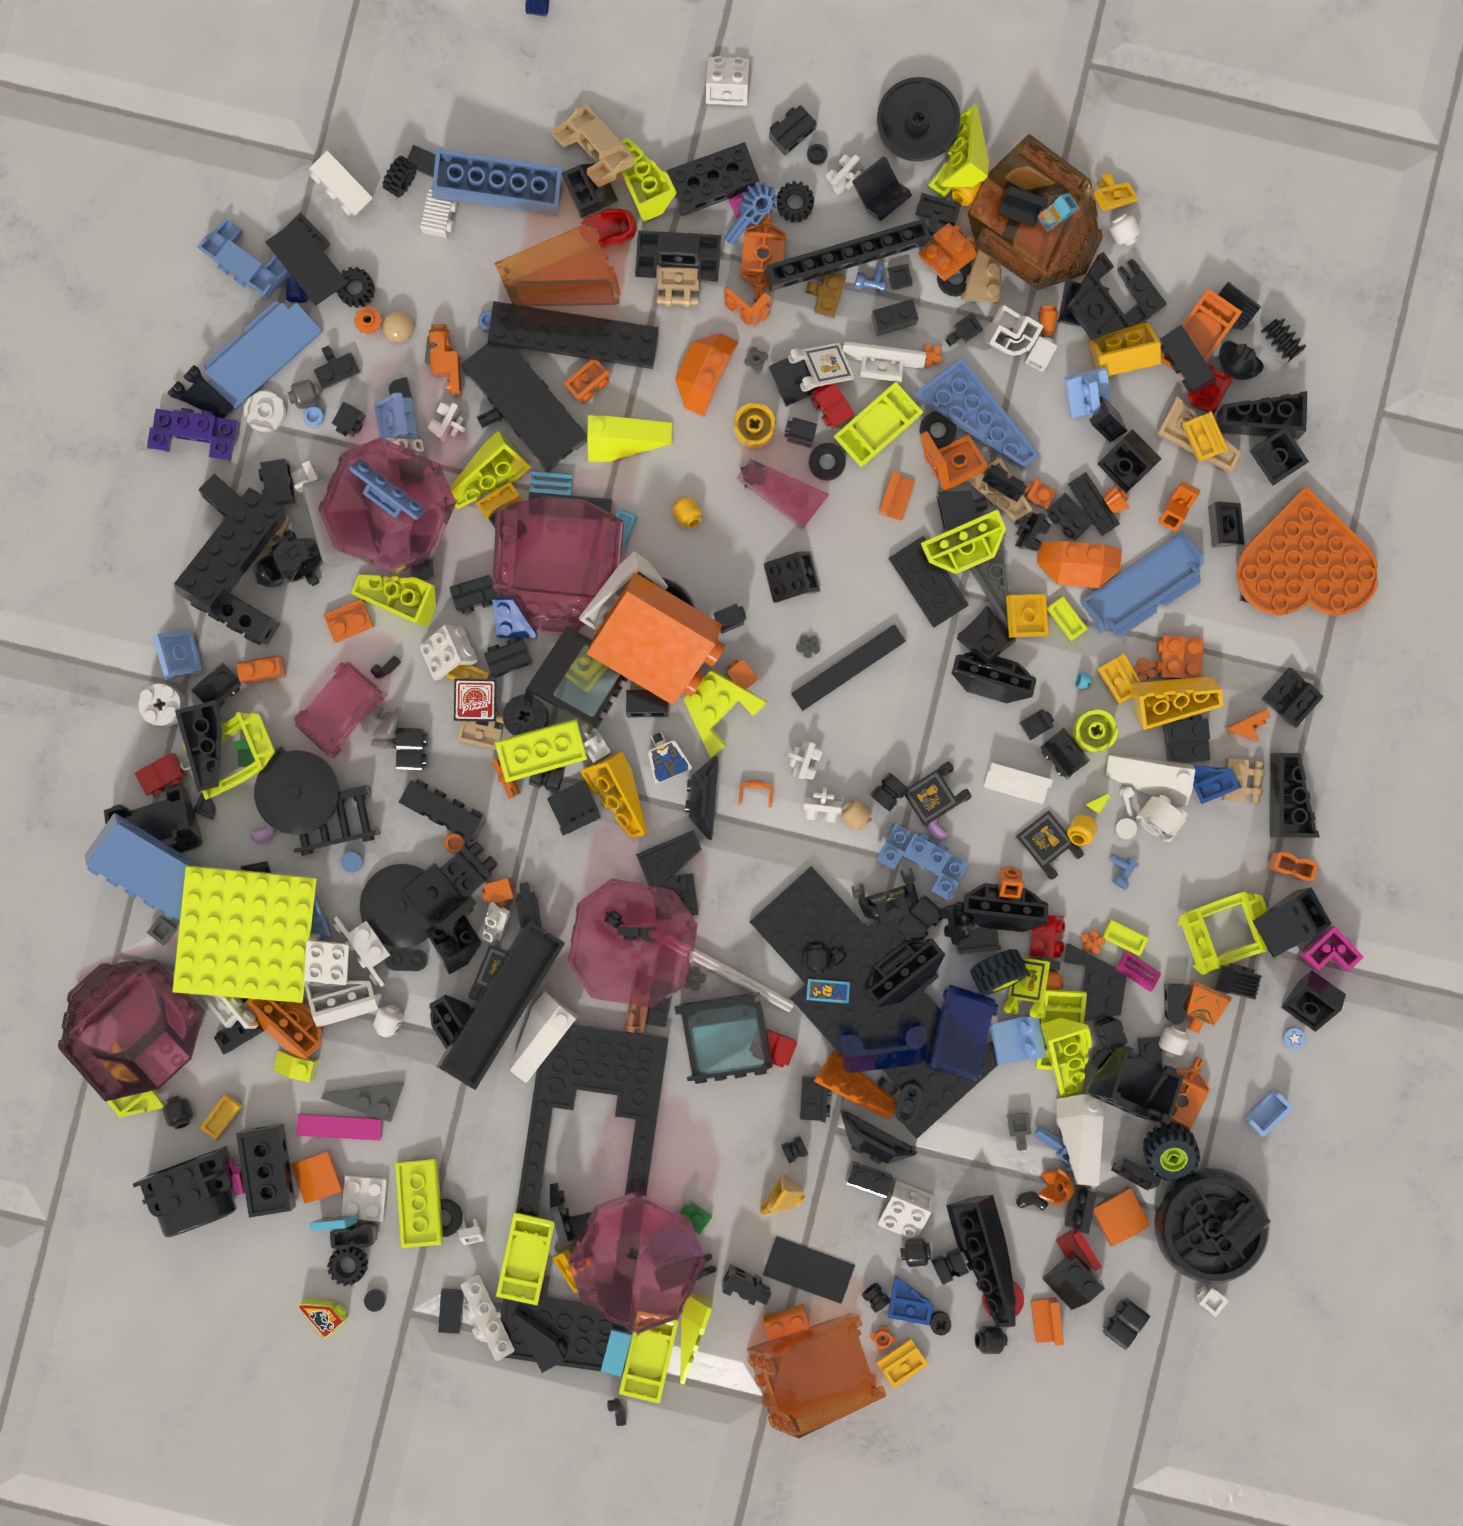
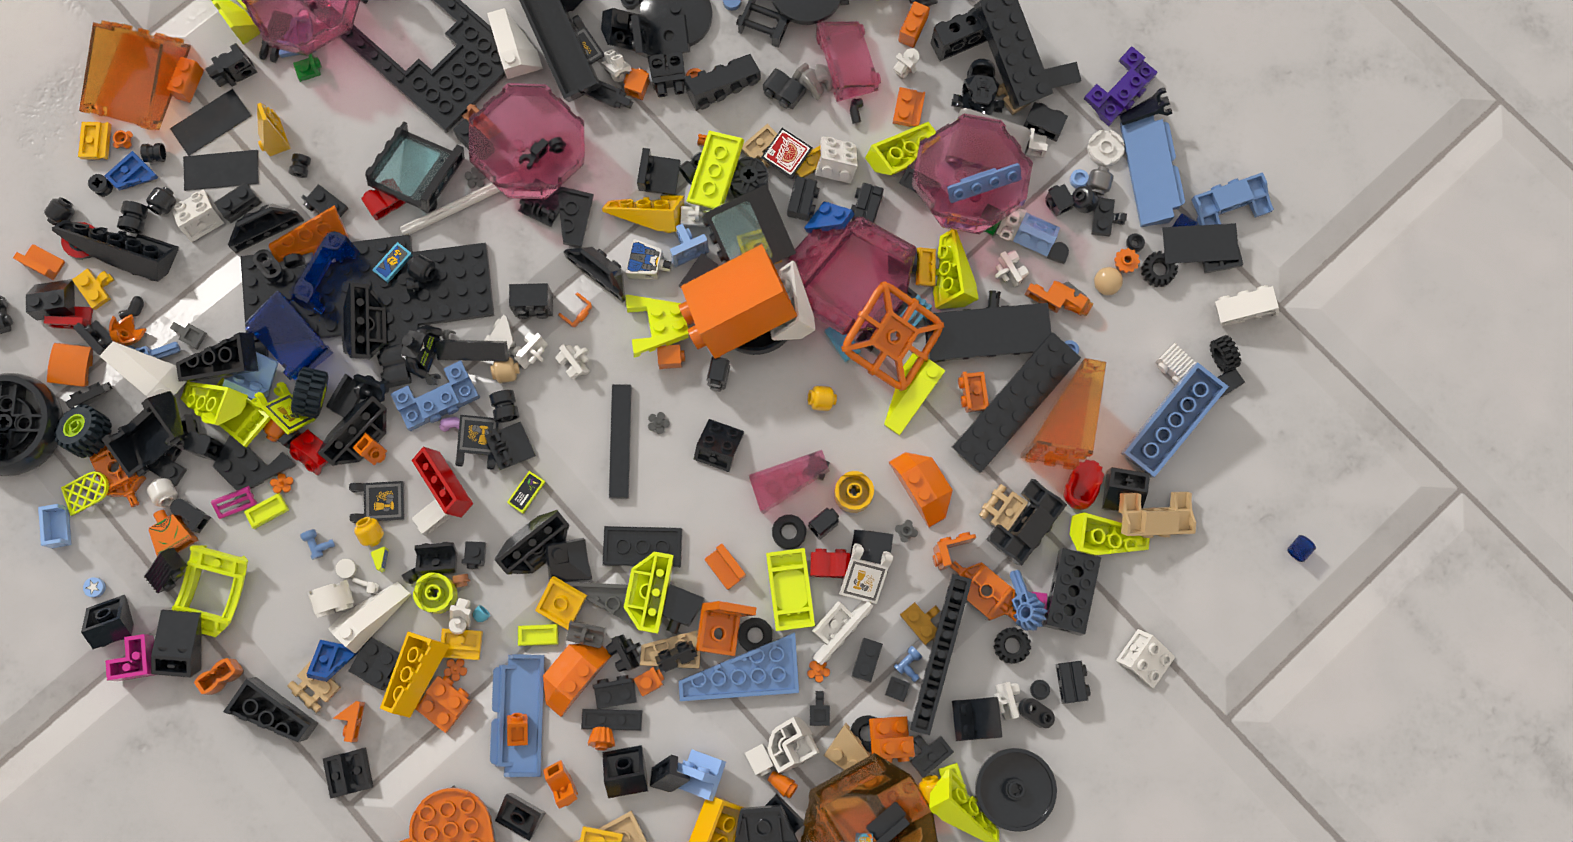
camera: 115 degrees right, 10 degrees down
(306, 648) = (906, 63): none -> white hips
(333, 395) = (1085, 199): none -> black head
(343, 319) = (1139, 239): none -> black plate
(581, 486) = (881, 337): none -> orange plate
(623, 735) = (689, 247): none -> light blue bracket
(777, 836) = (531, 300): none -> black brick
(830, 838) = (503, 332): none -> white slope
(840, 143) = (1038, 713): none -> black plate
(847, 1223) = (220, 169): none -> black piece
(859, 856) = (472, 350): none -> black tile
(920, 762) = (509, 445): none -> black hinge
(950, 718) = (526, 492): none -> tile
(996, 792) = (442, 482): none -> red brick
(1024, 1071) = (226, 358): none -> black wedge
(1038, 1253) = (92, 287): none -> yellow plate
(1039, 575) = (585, 634): none -> dark grey hips
(1066, 719) = (460, 580): none -> nougat plate
(1093, 766) = (410, 576): none -> black hinge
(1101, 692) = (460, 617): none -> white hips
(1158, 576) = (517, 729): none -> orange bracket
(1236, 1123) = (97, 492): none -> neon yellow window

